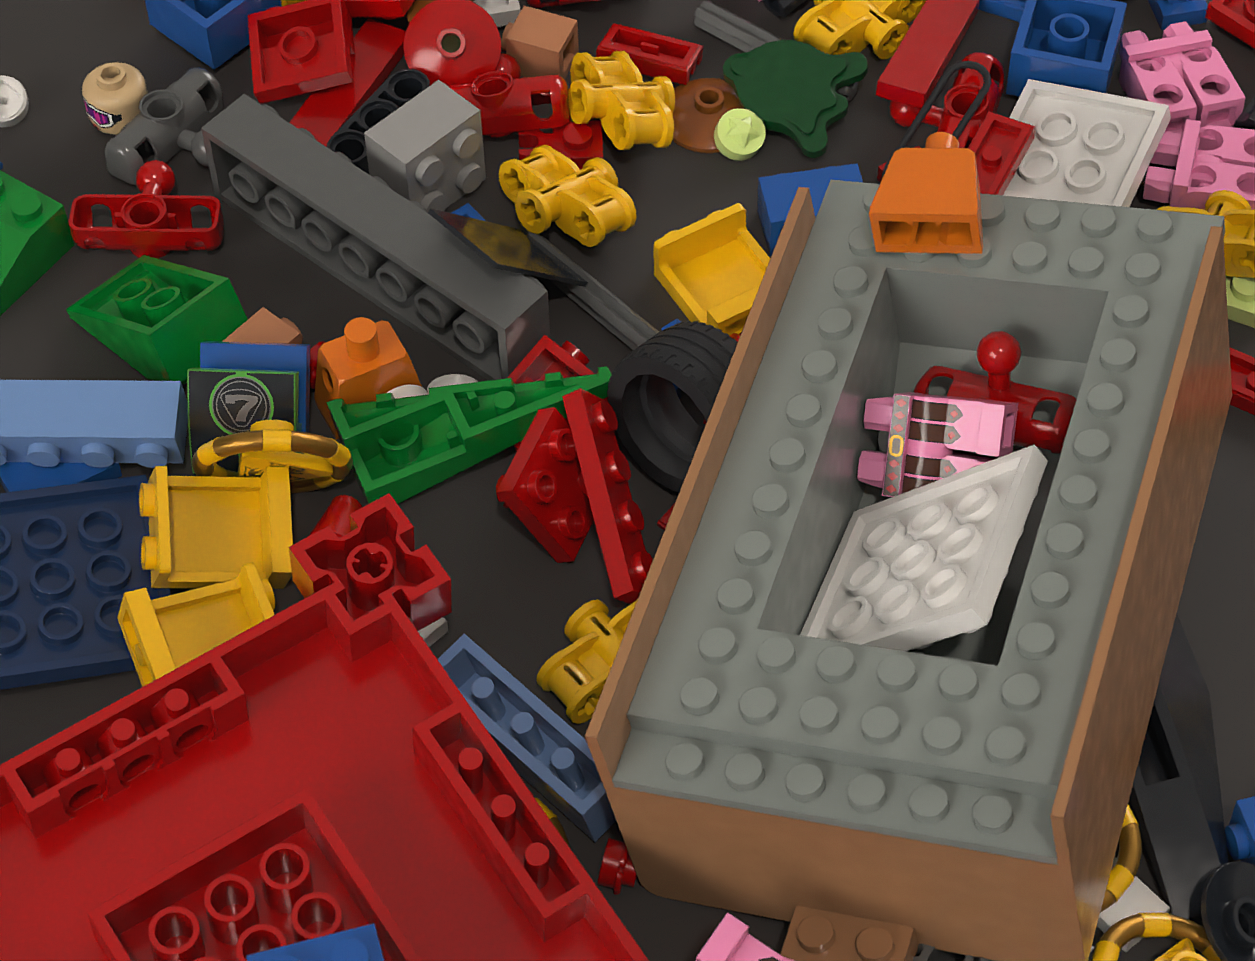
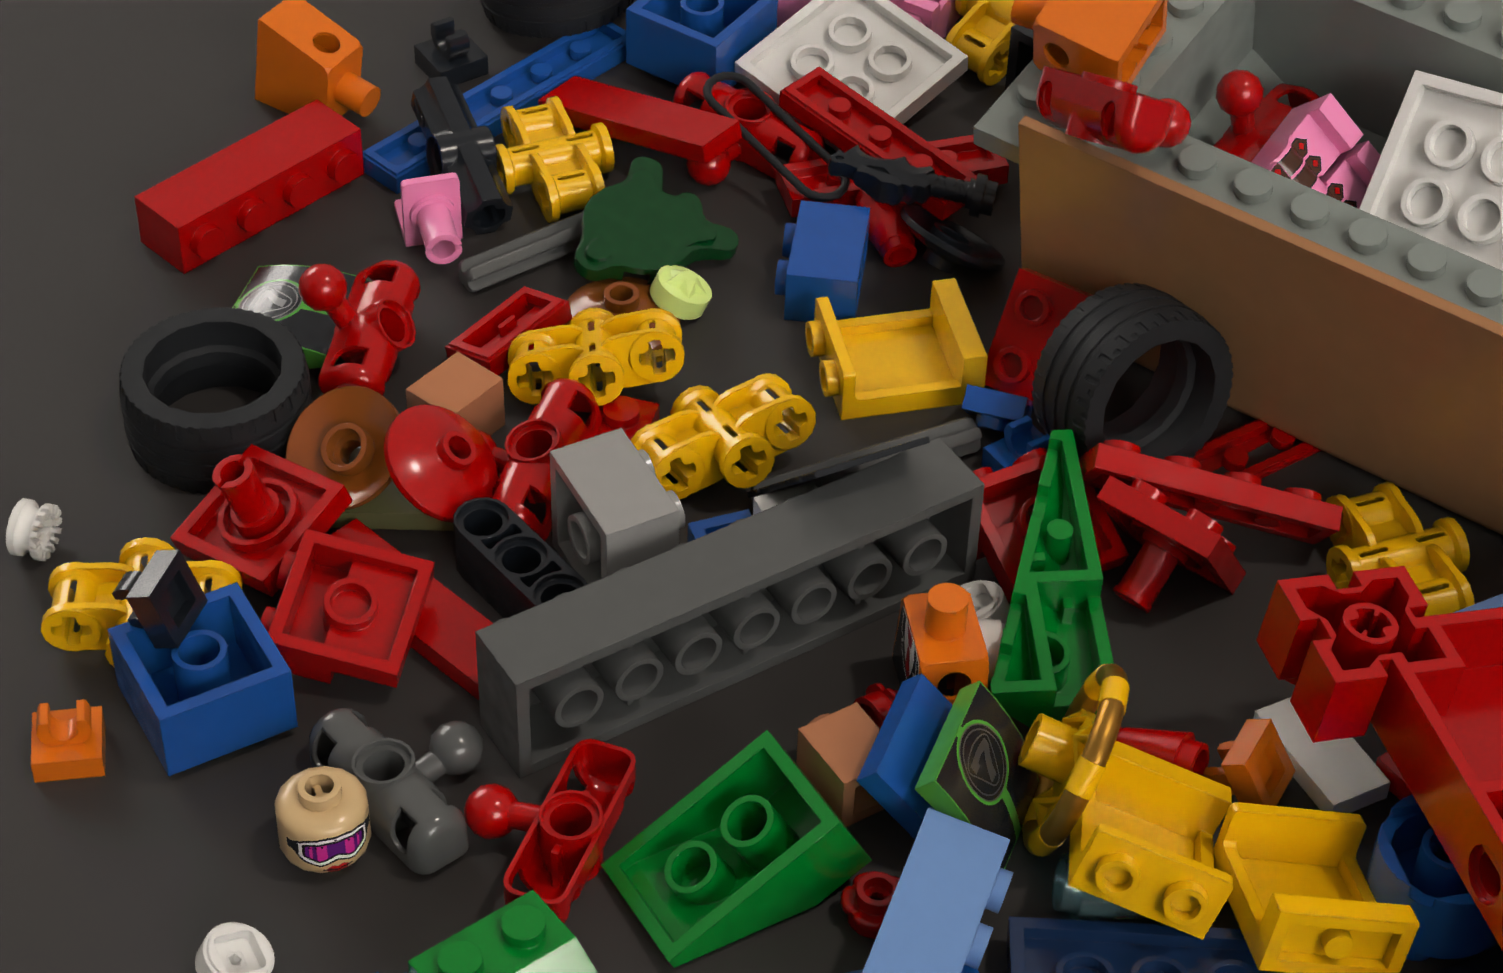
camera: 75 degrees left, 10 degrees down
(813, 219) = (1110, 111): none -> red piece

